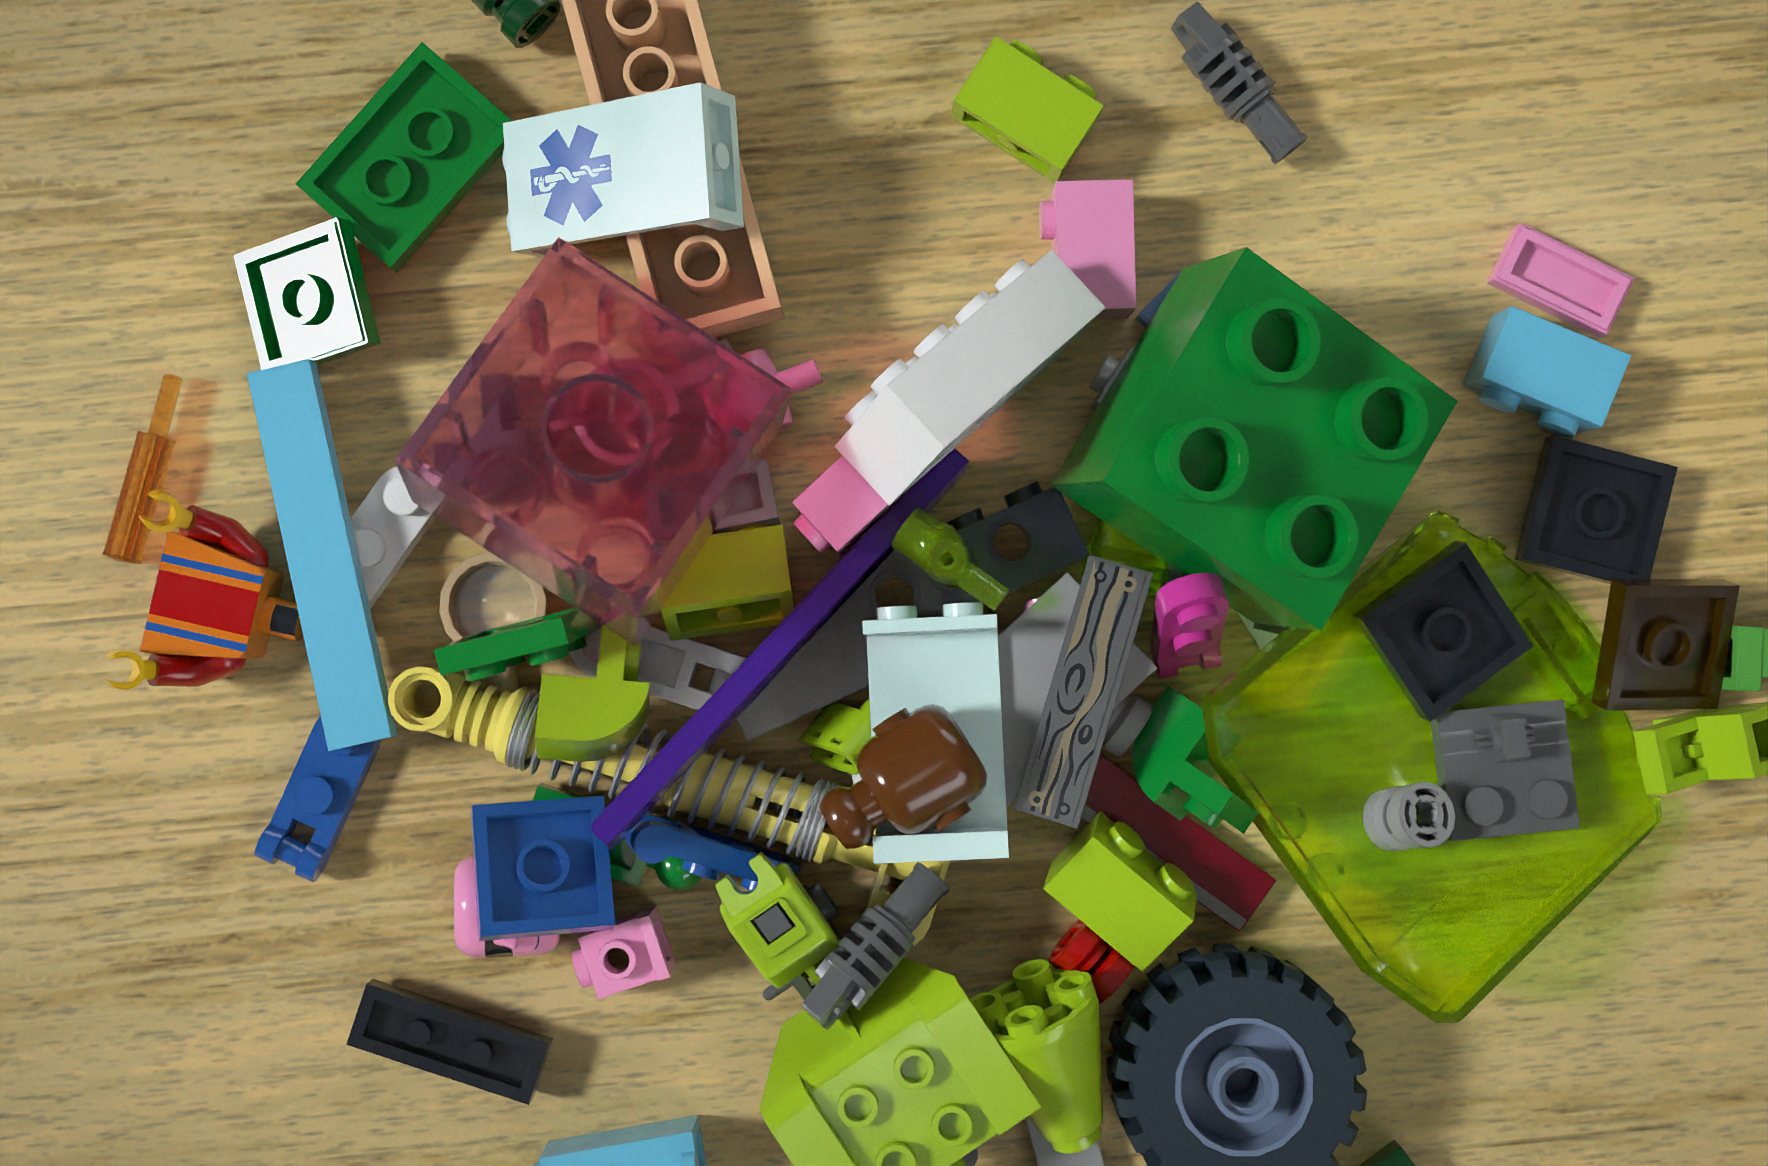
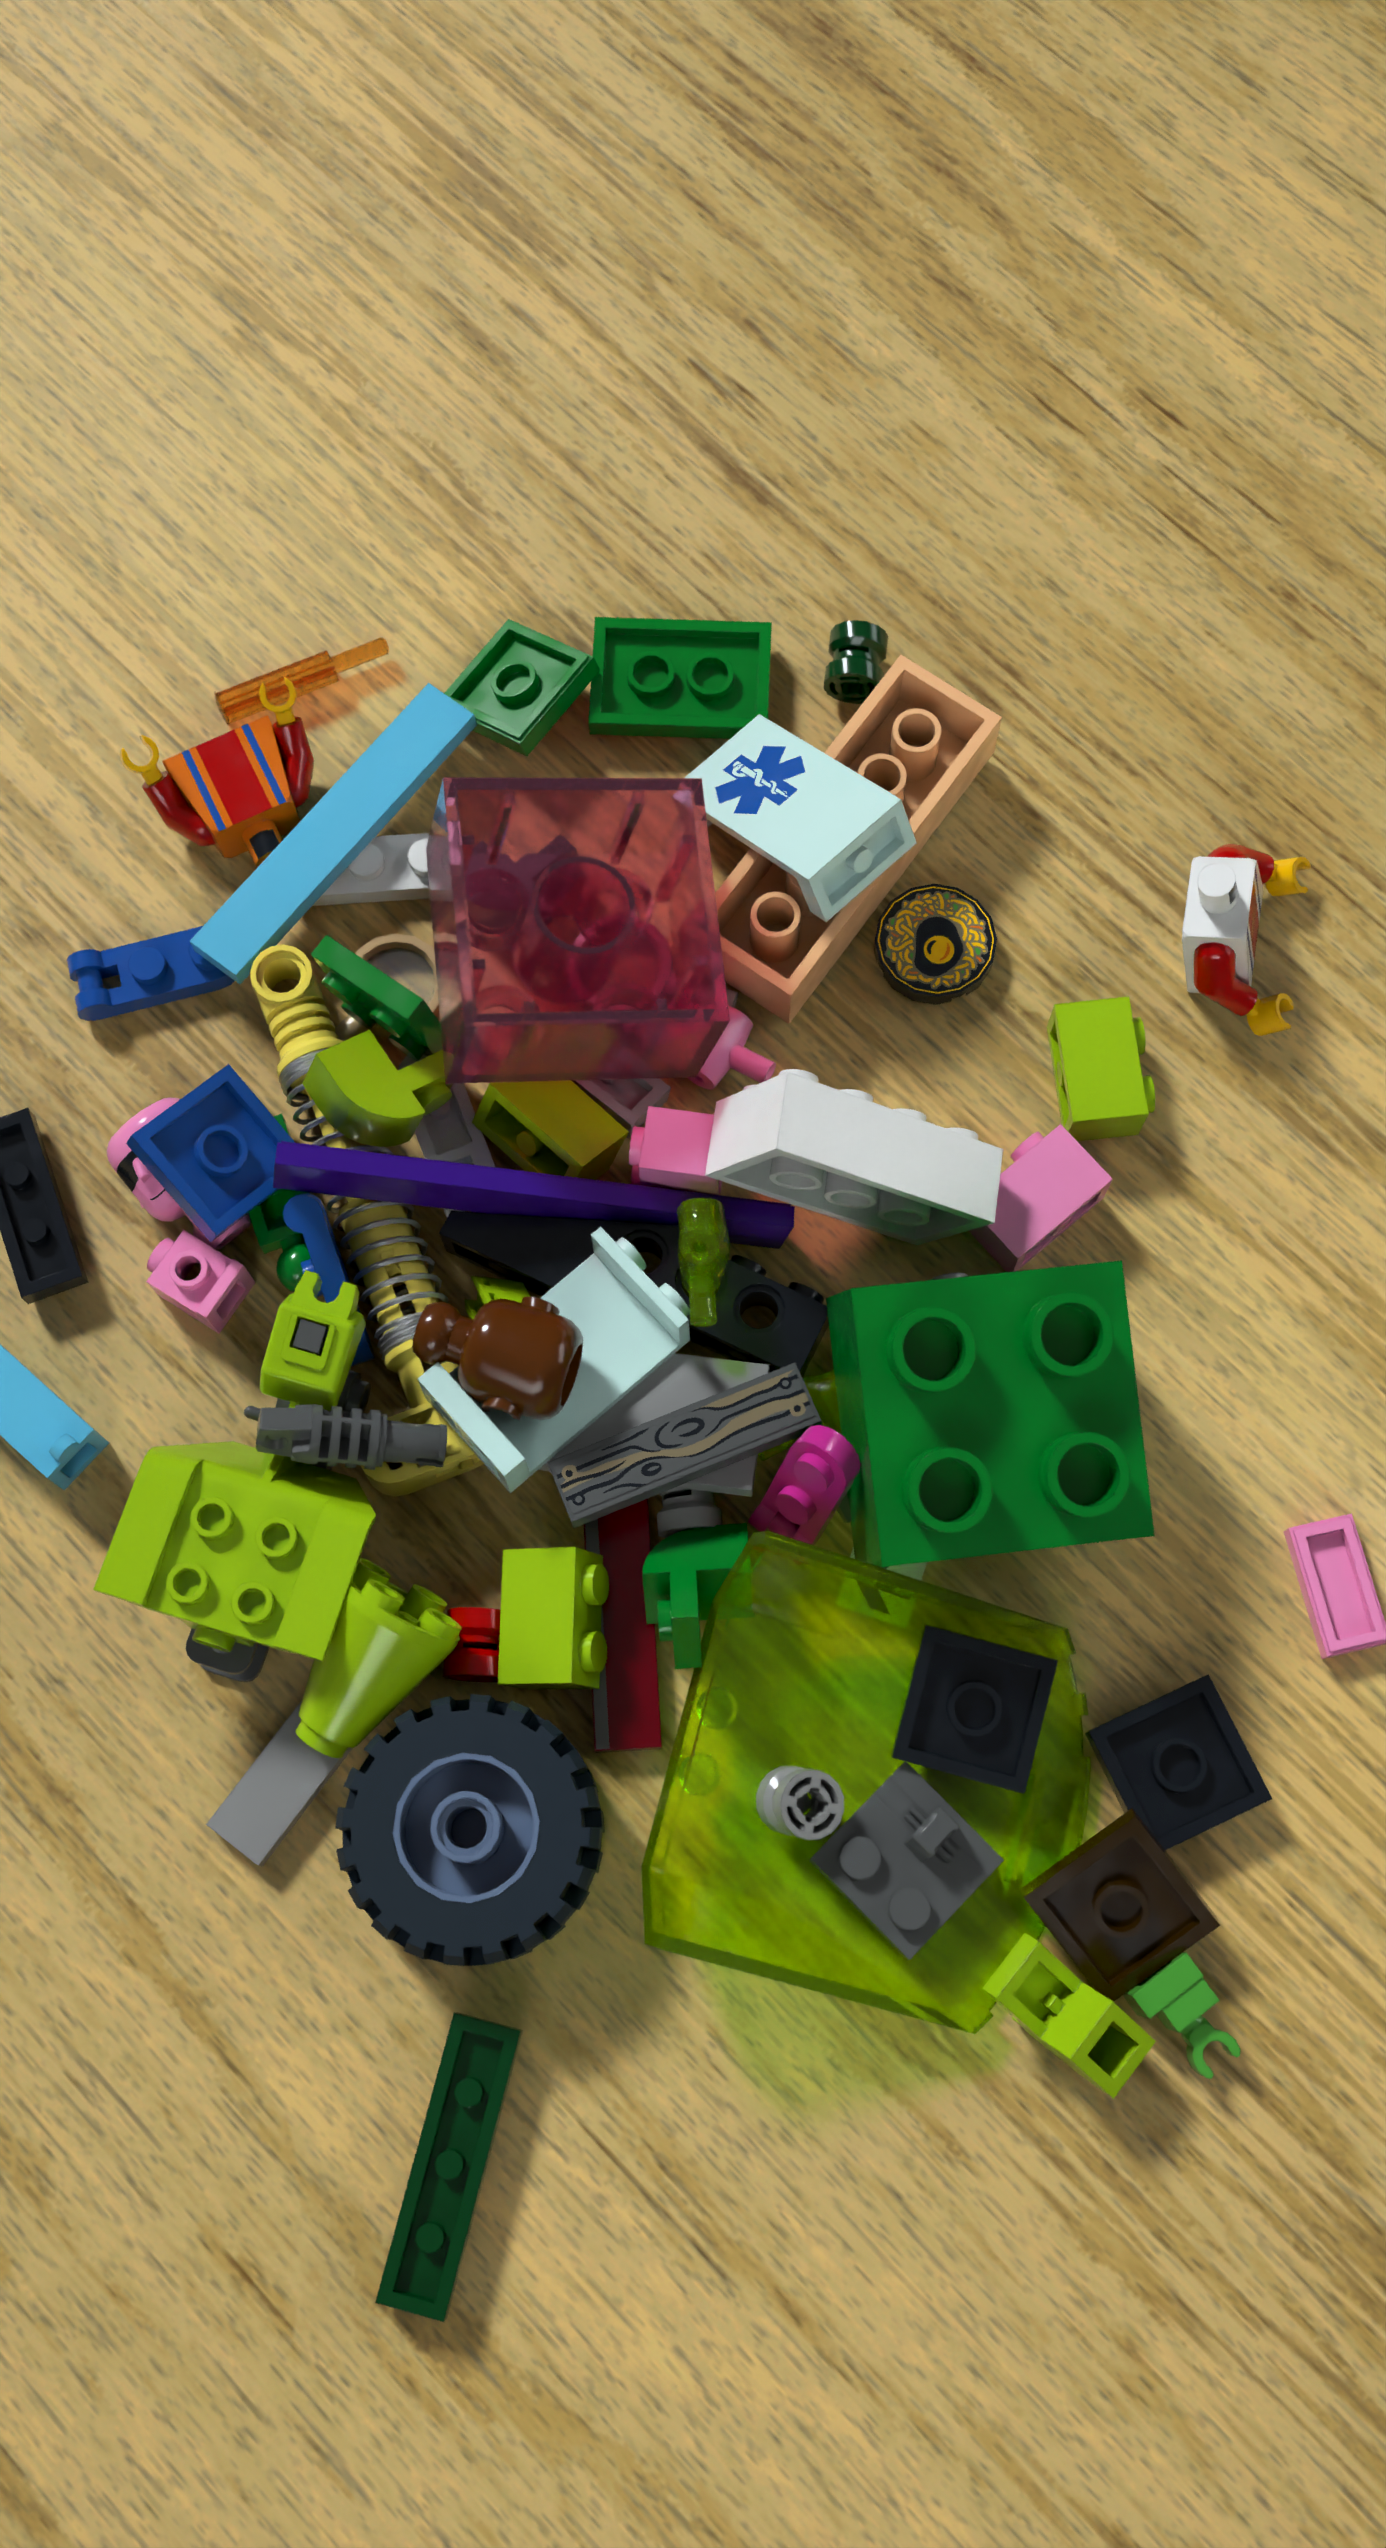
camera: 50 degrees right, 15 degrees down
(812, 145) = (935, 943): none -> tile
(1236, 81) = (1259, 1208): dark grey hinge -> none
(1546, 372) = (1252, 1627): medium azure brick -> none

